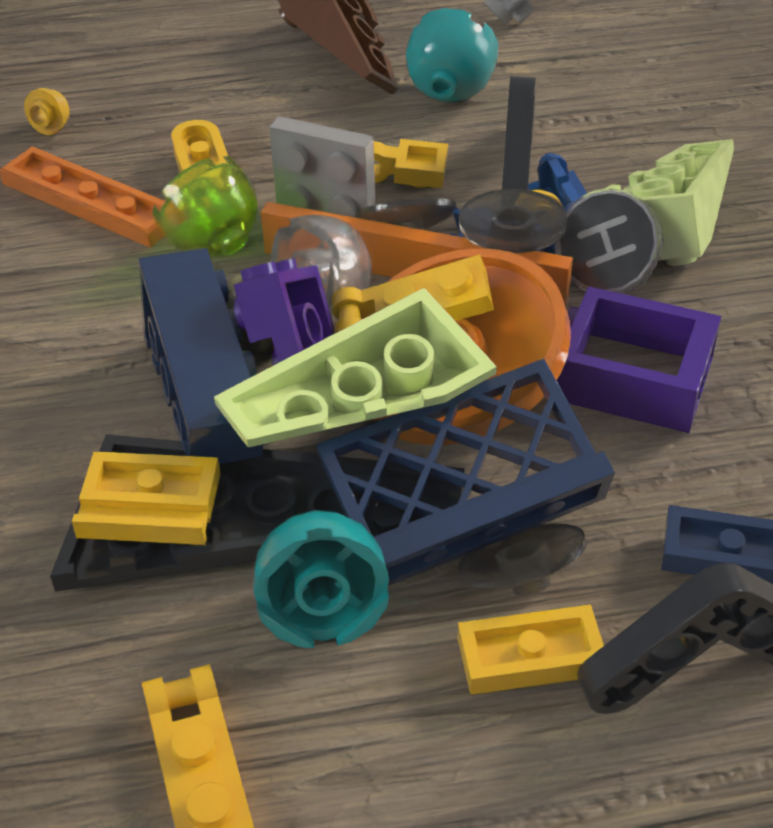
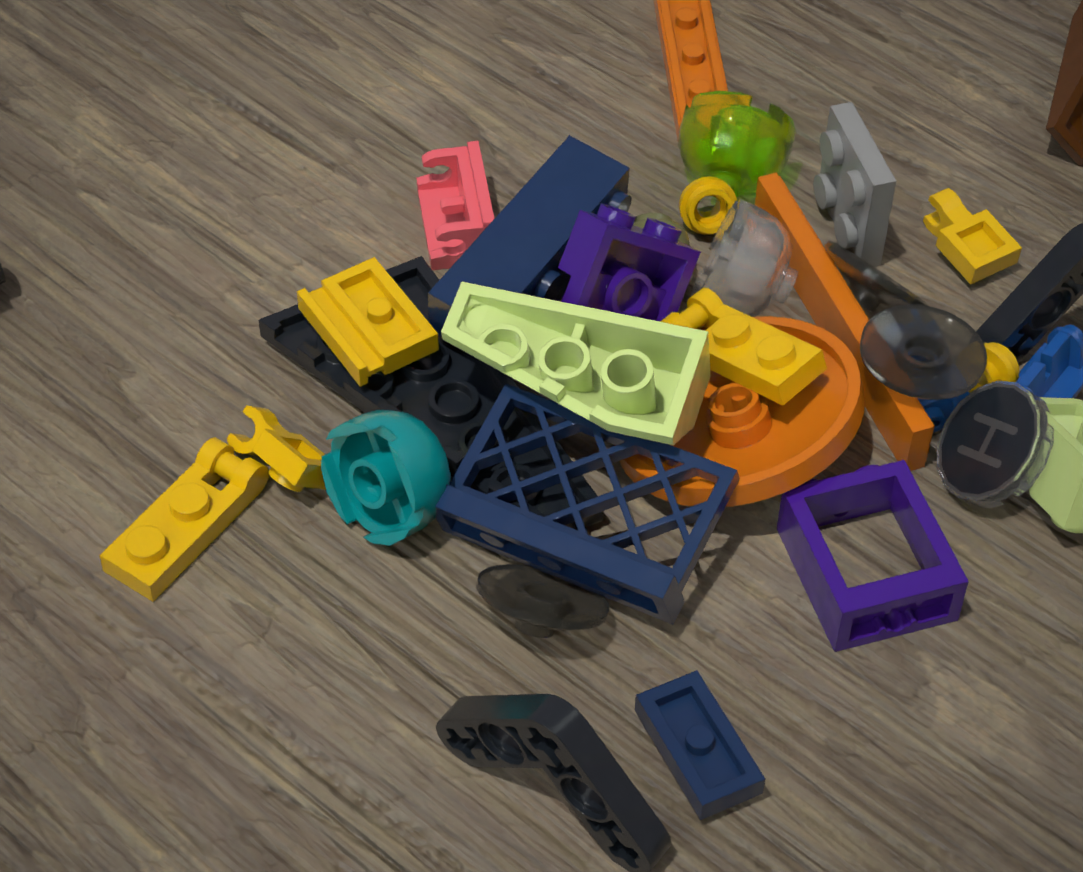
camera: 50 degrees right, 5 degrees up
(78, 387) = (453, 203): none -> coral hinge
(197, 141) = (817, 84): yellow plate -> none
(221, 641) = (292, 457): none -> yellow plate
(240, 252) = (708, 221): none -> yellow plate
(527, 648) = (455, 654): yellow plate -> none

